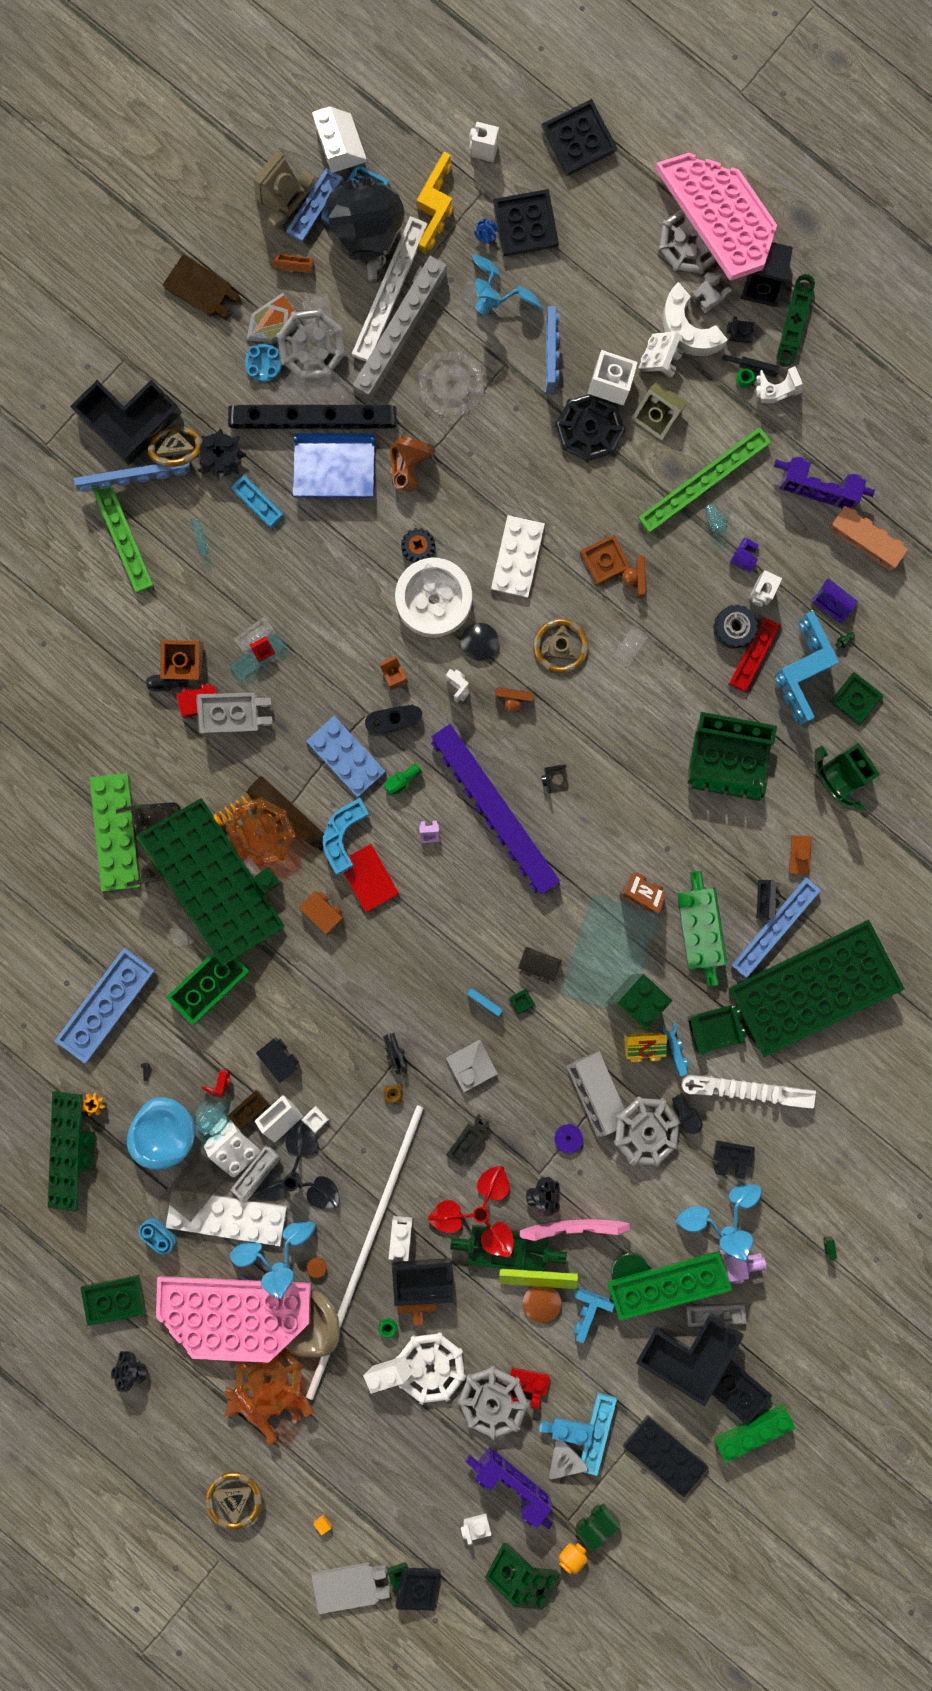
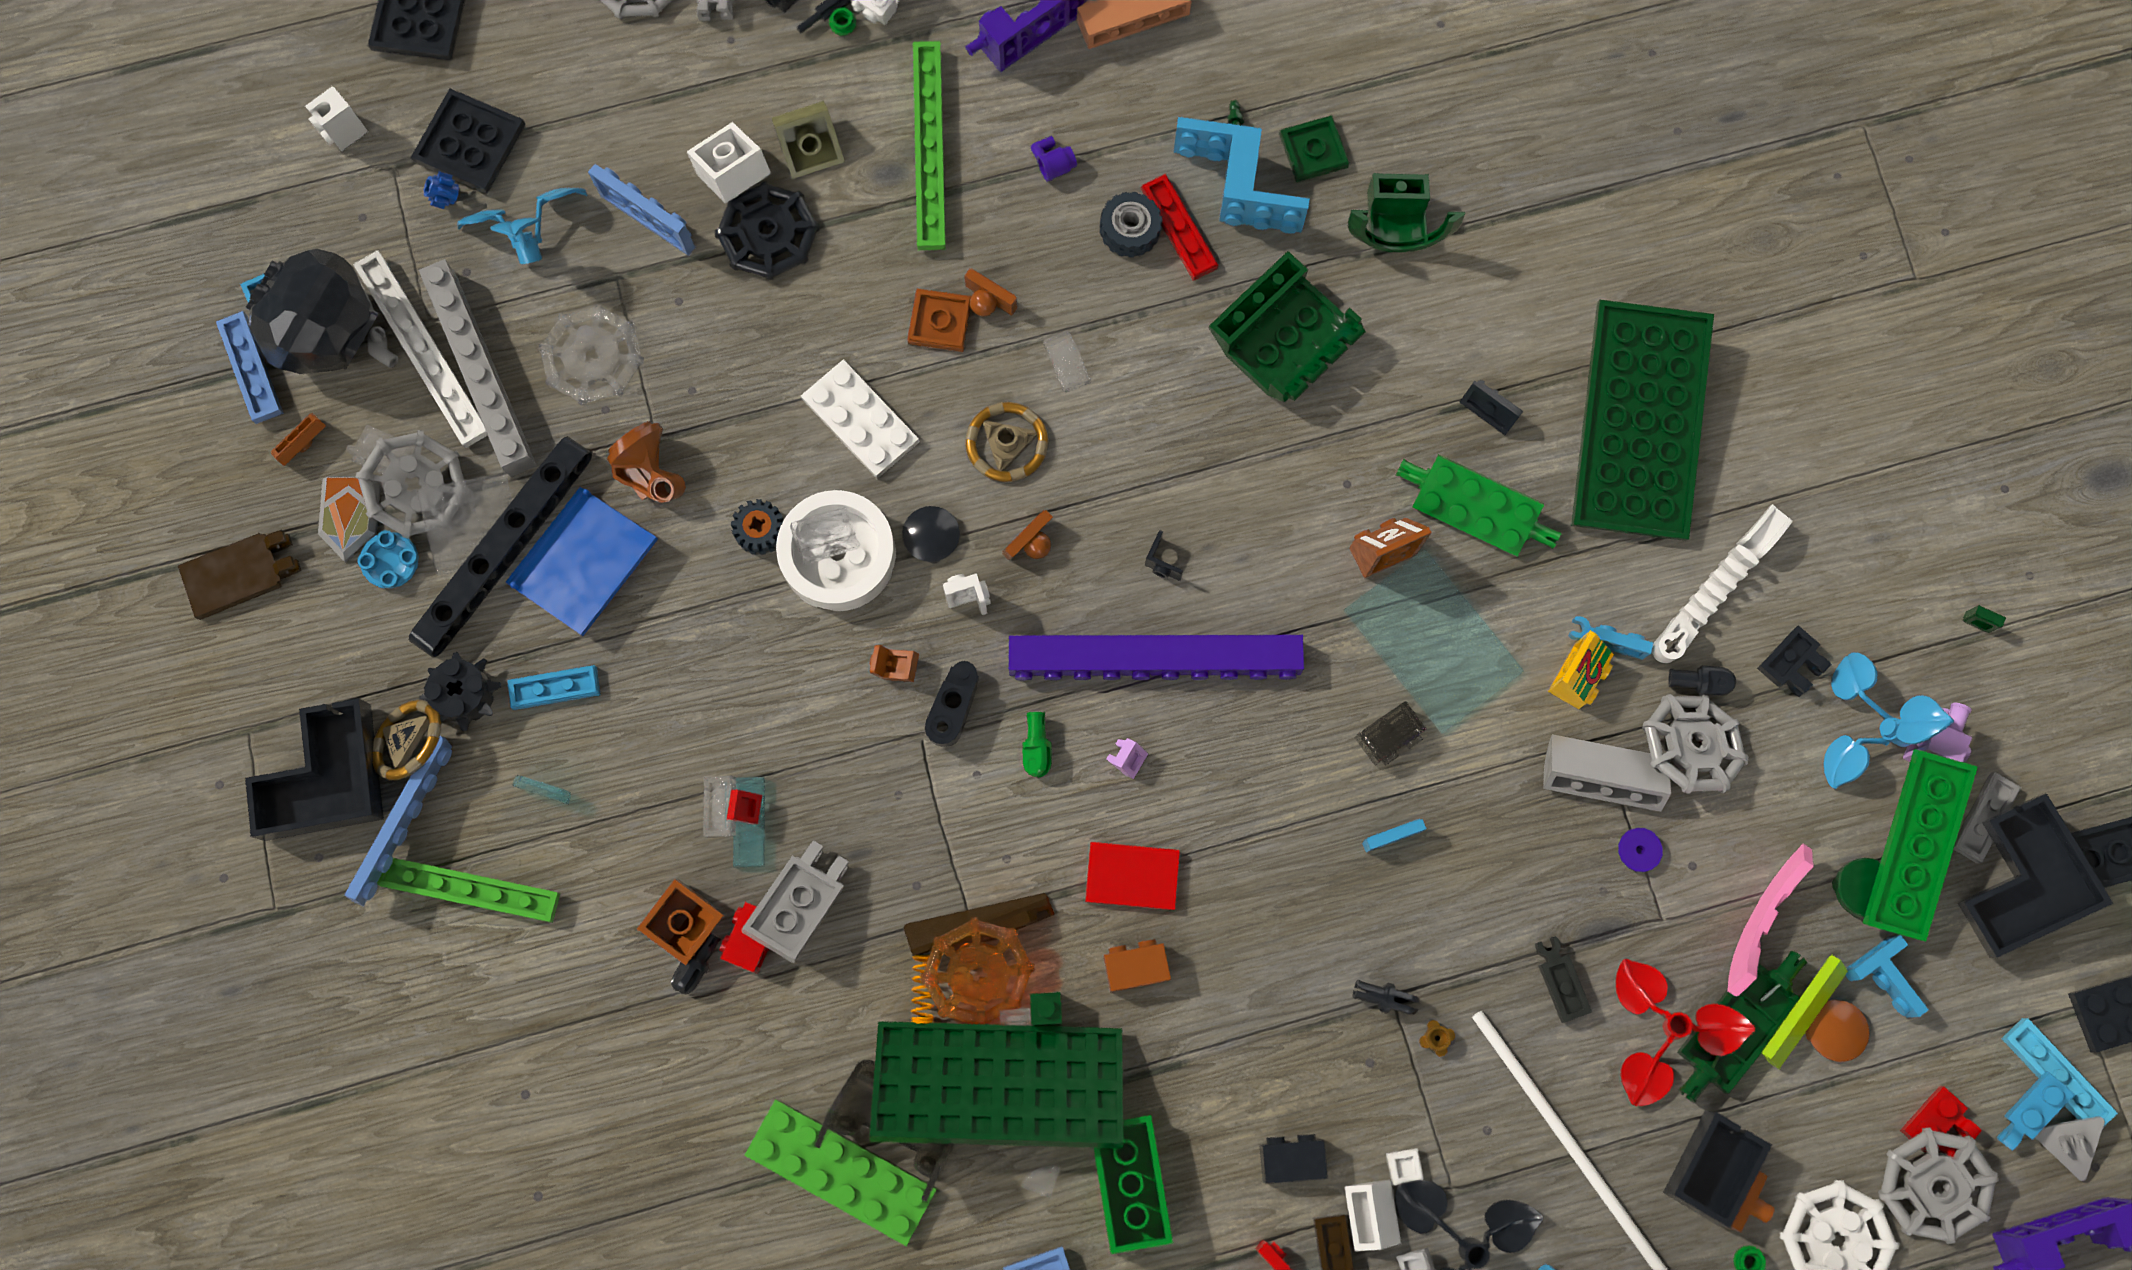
camera: 60 degrees left, 10 degrees down
(280, 189) = (193, 391): dark tan piece -> none
(335, 832) = (1045, 878): dark azure plate -> none
(338, 138) = (193, 284): white slope -> none
(346, 756) = (956, 798): medium blue plate -> none
(400, 1238) = (1638, 1159): white brick -> none
(435, 203) = (362, 226): yellow bracket -> none
(471, 1066) = (1465, 910): light grey plate -> none
(522, 1001) = (1422, 789): dark green tile -> none
(544, 1196) = (1699, 931): black plate -> none
(639, 1001) = (1525, 635): dark green brick -> none
(660, 352) = (742, 90): white plate -> none
(692, 340) = (737, 53): white brick -> none
(715, 519) = (984, 162): clear light blue cone -> none
(717, 1028) = (1615, 572): dark green panel -> none
(764, 588) = (1110, 158): white brick -> none
(775, 928) = (1534, 421): medium blue plate -> none
(800, 854) = (1461, 334): dark orange tile -> none
(834, 601) = (1180, 96): dark purple panel -> none

